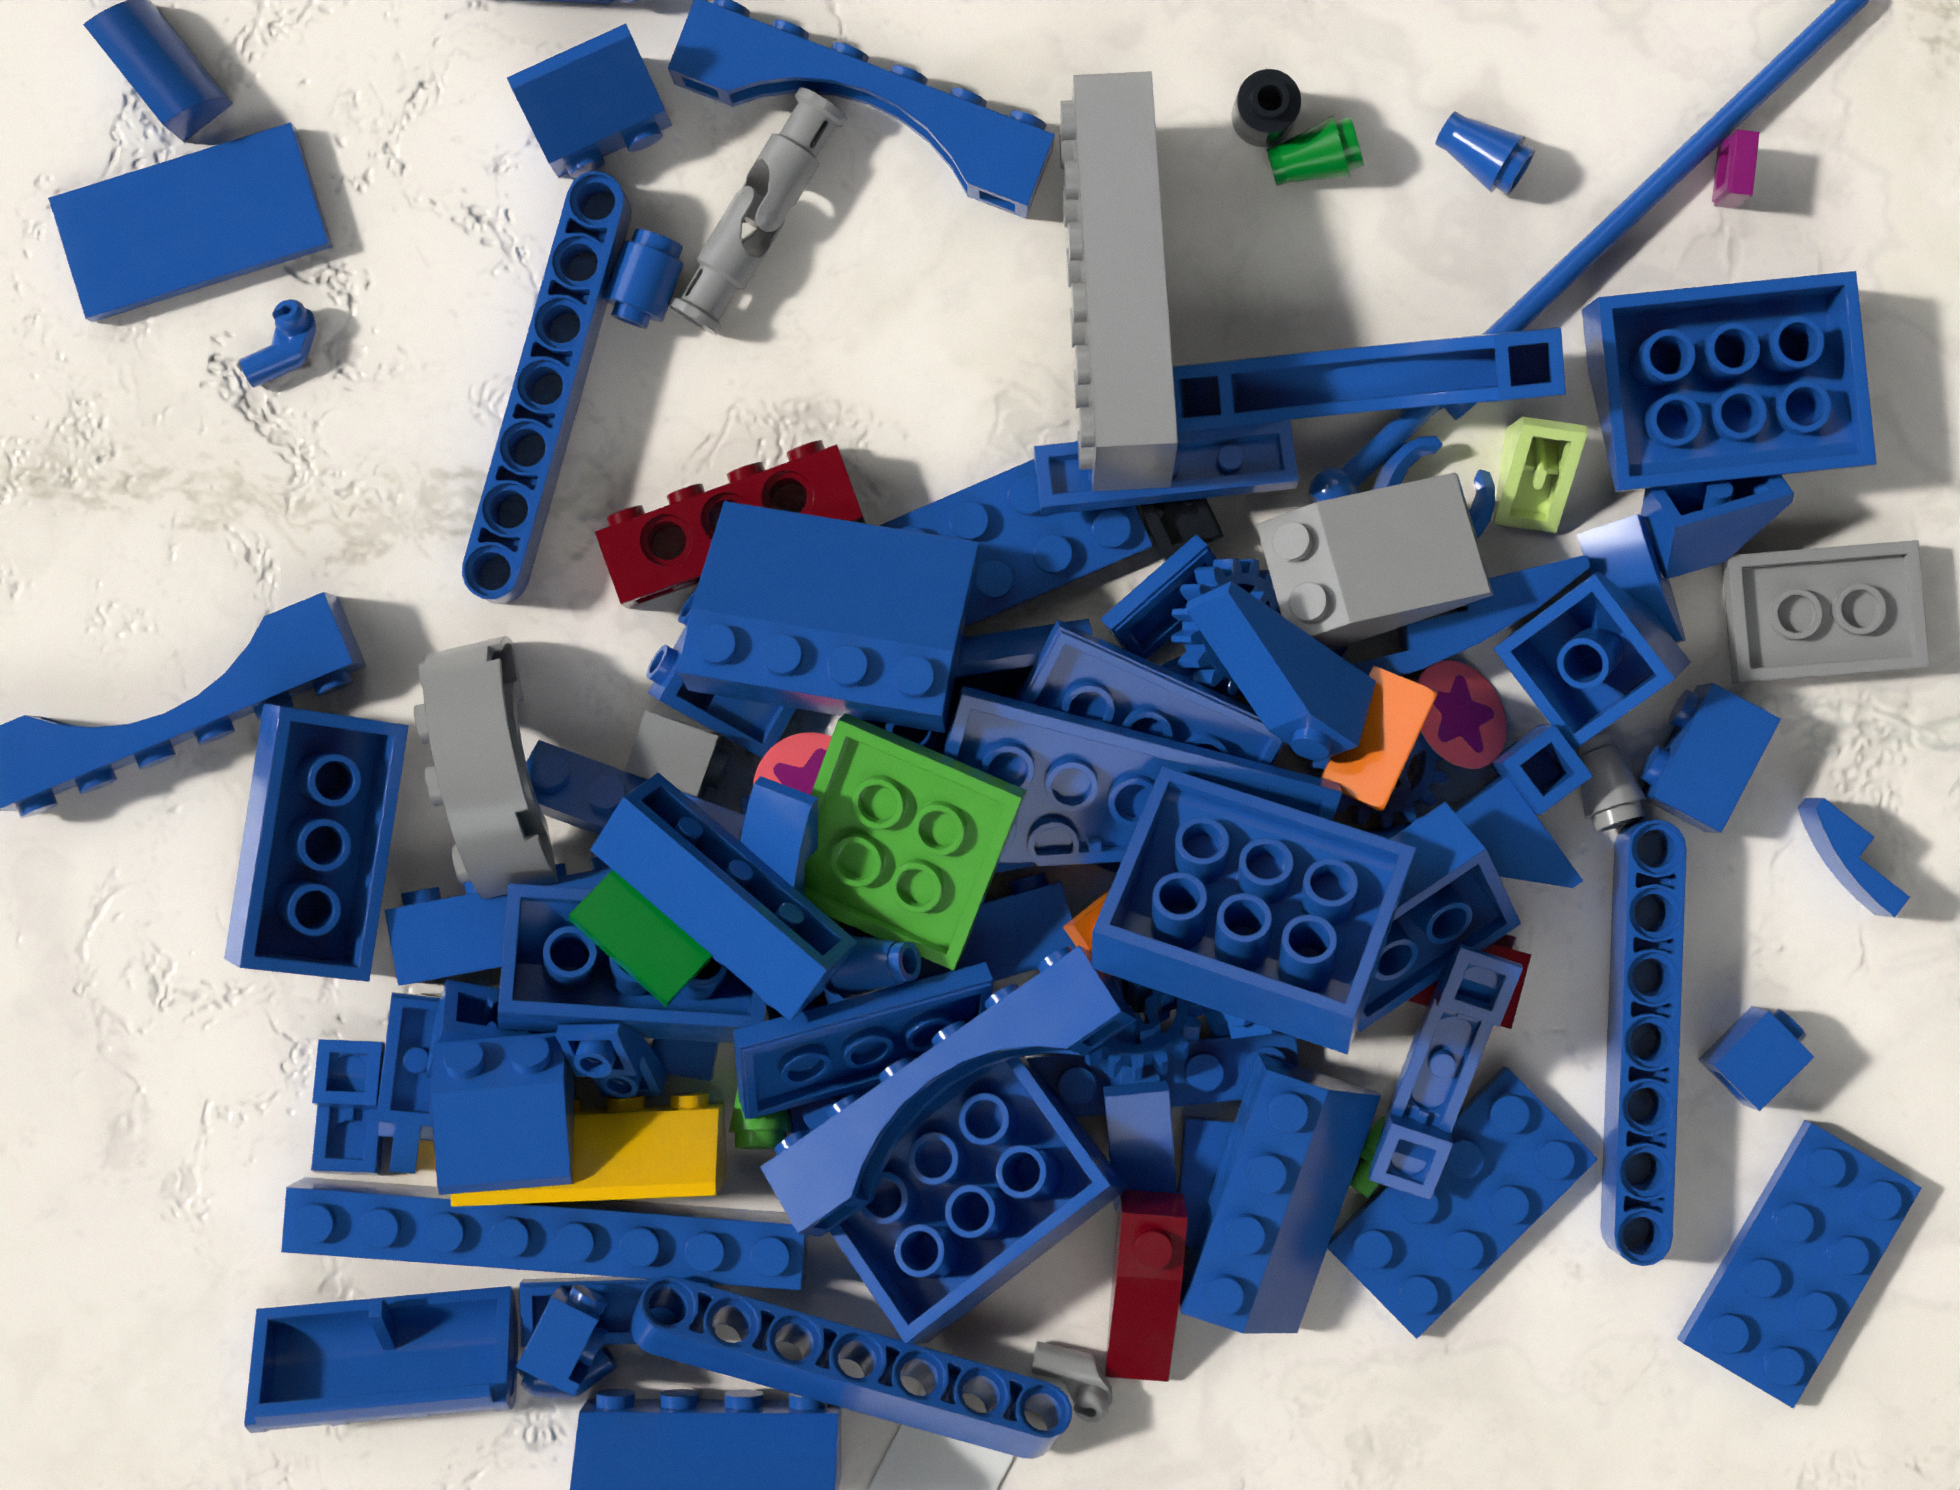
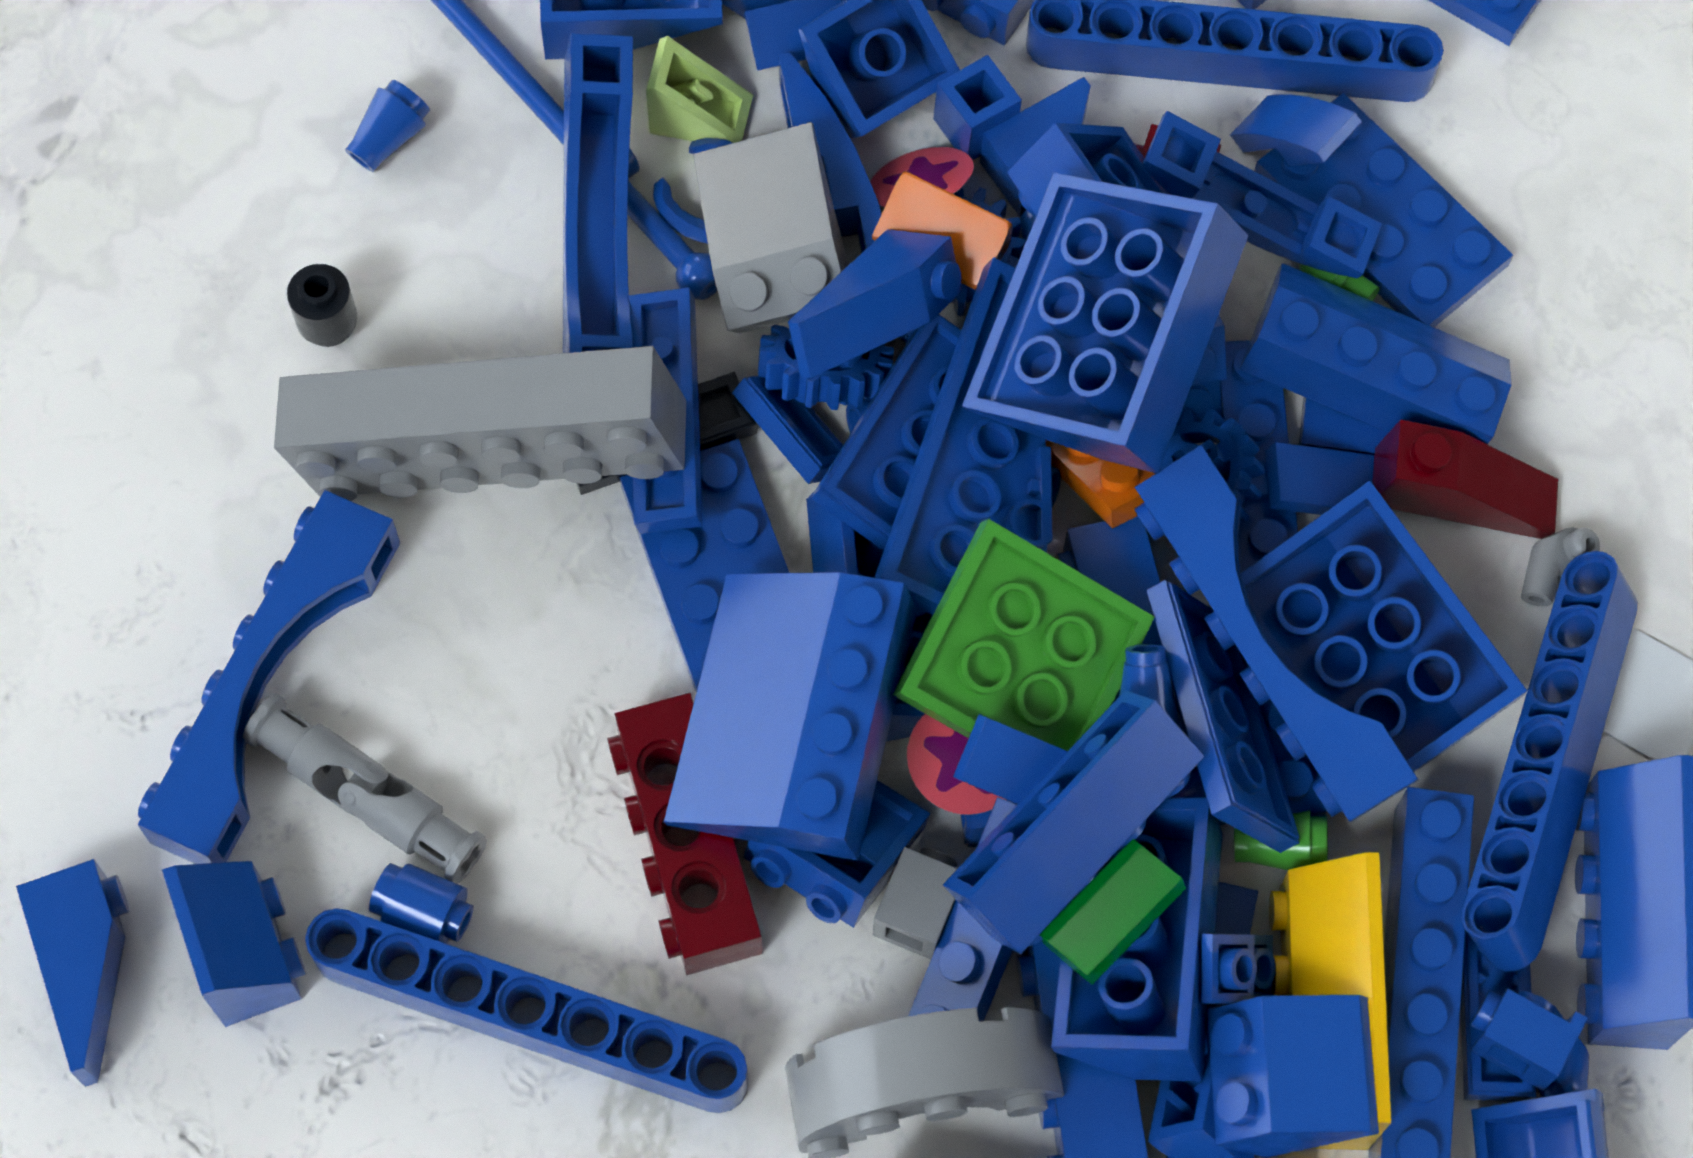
camera: 85 degrees left, 20 degrees down
(1317, 153) = (370, 267): green cone -> none
(1540, 1109) = (1297, 126): none -> blue slope
(1612, 794) = (1007, 50): light grey cone -> none

